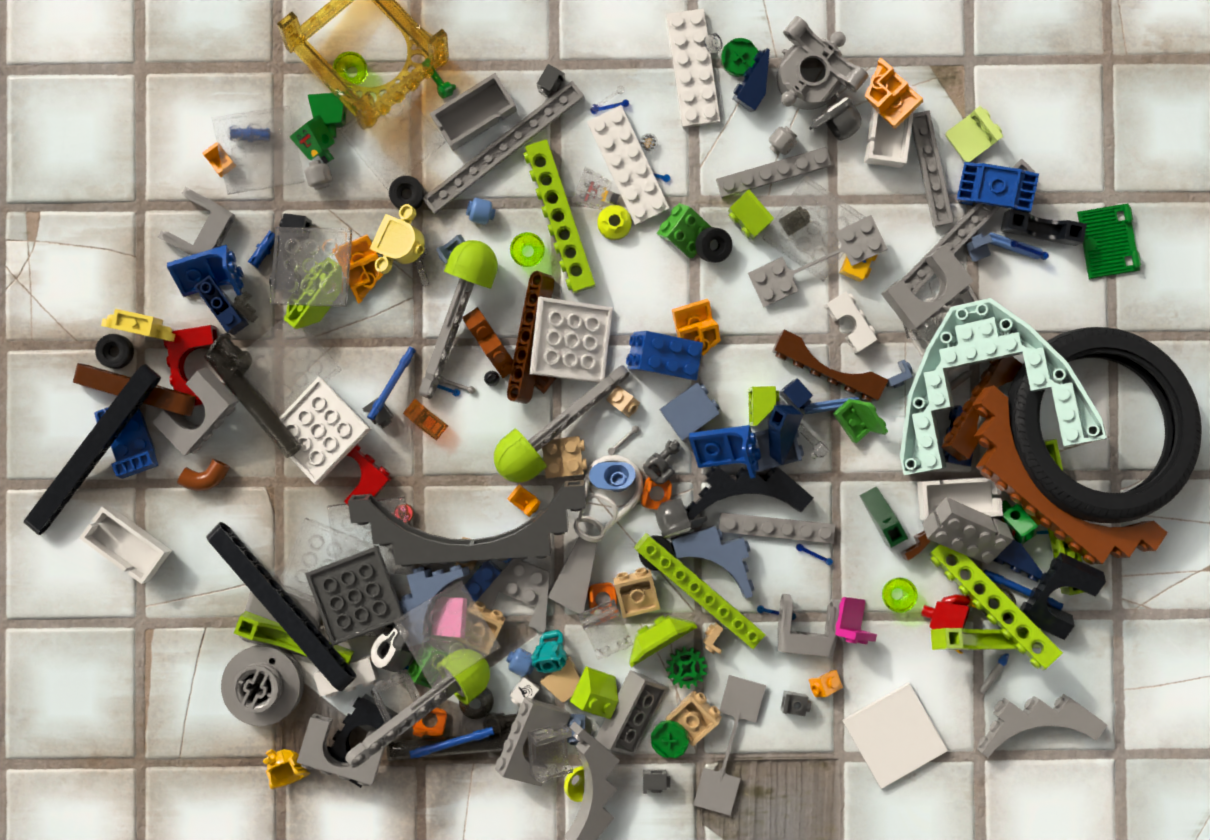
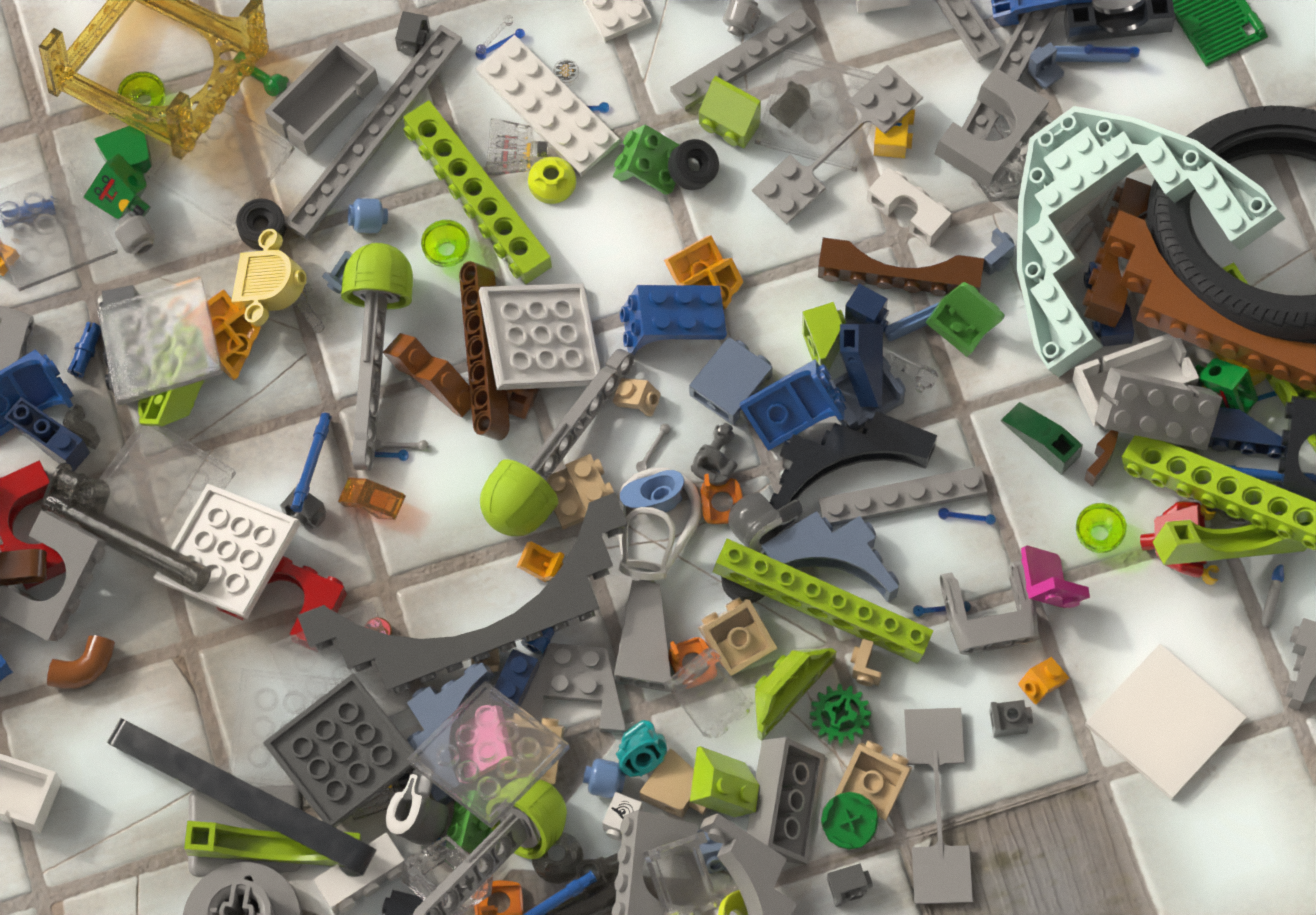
camera: 15 degrees left, 20 degrees down
(494, 381) = (451, 424): black hinge -> none

